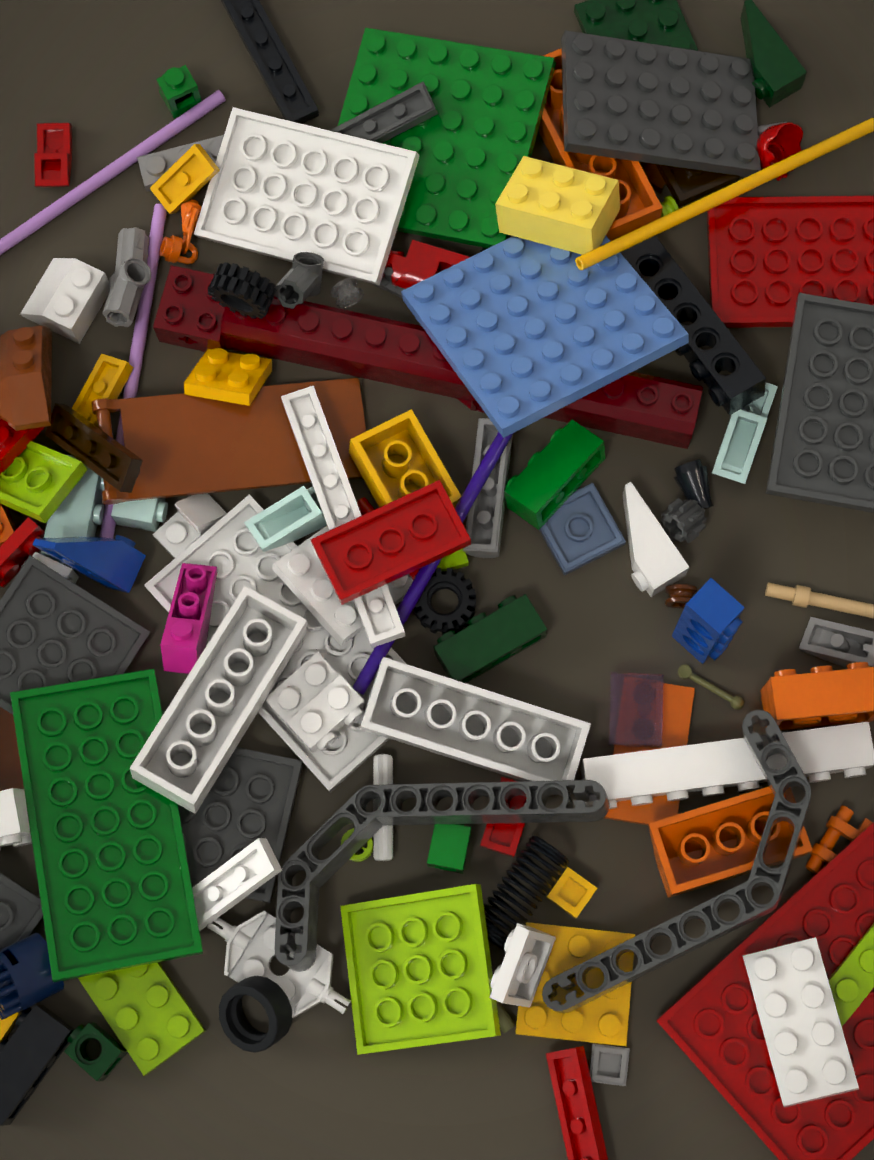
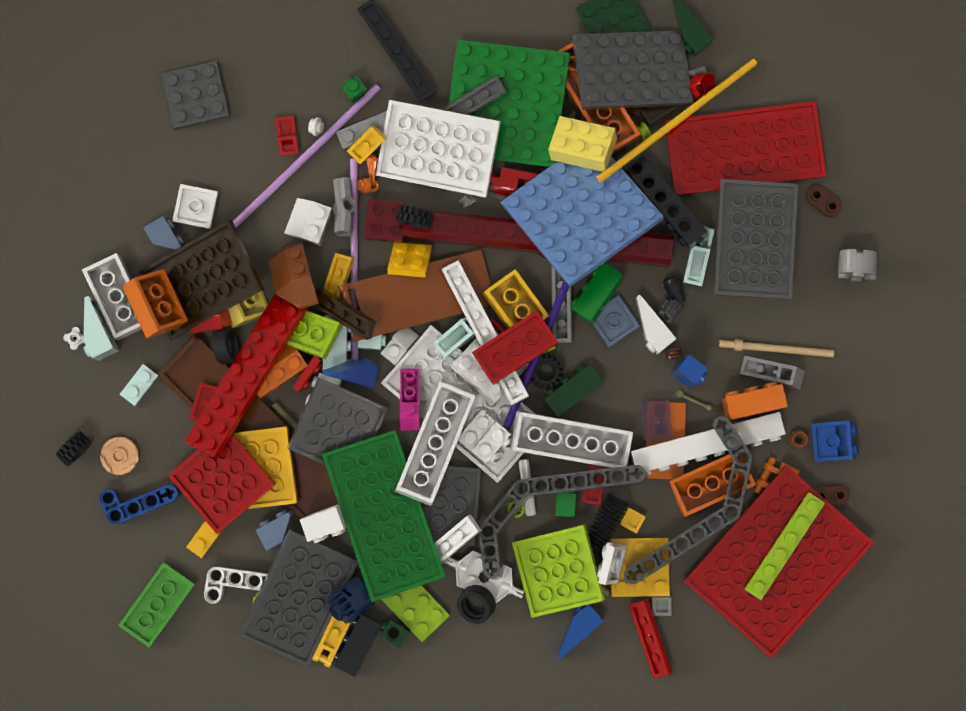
camera: 10 degrees left, 10 degrees up
(104, 144) = (316, 126): none -> white plate
(301, 280) = (444, 202): dark grey piece -> none
(451, 1081) = (581, 625): none -> blue slope
(800, 1022) = (757, 573): white plate -> none

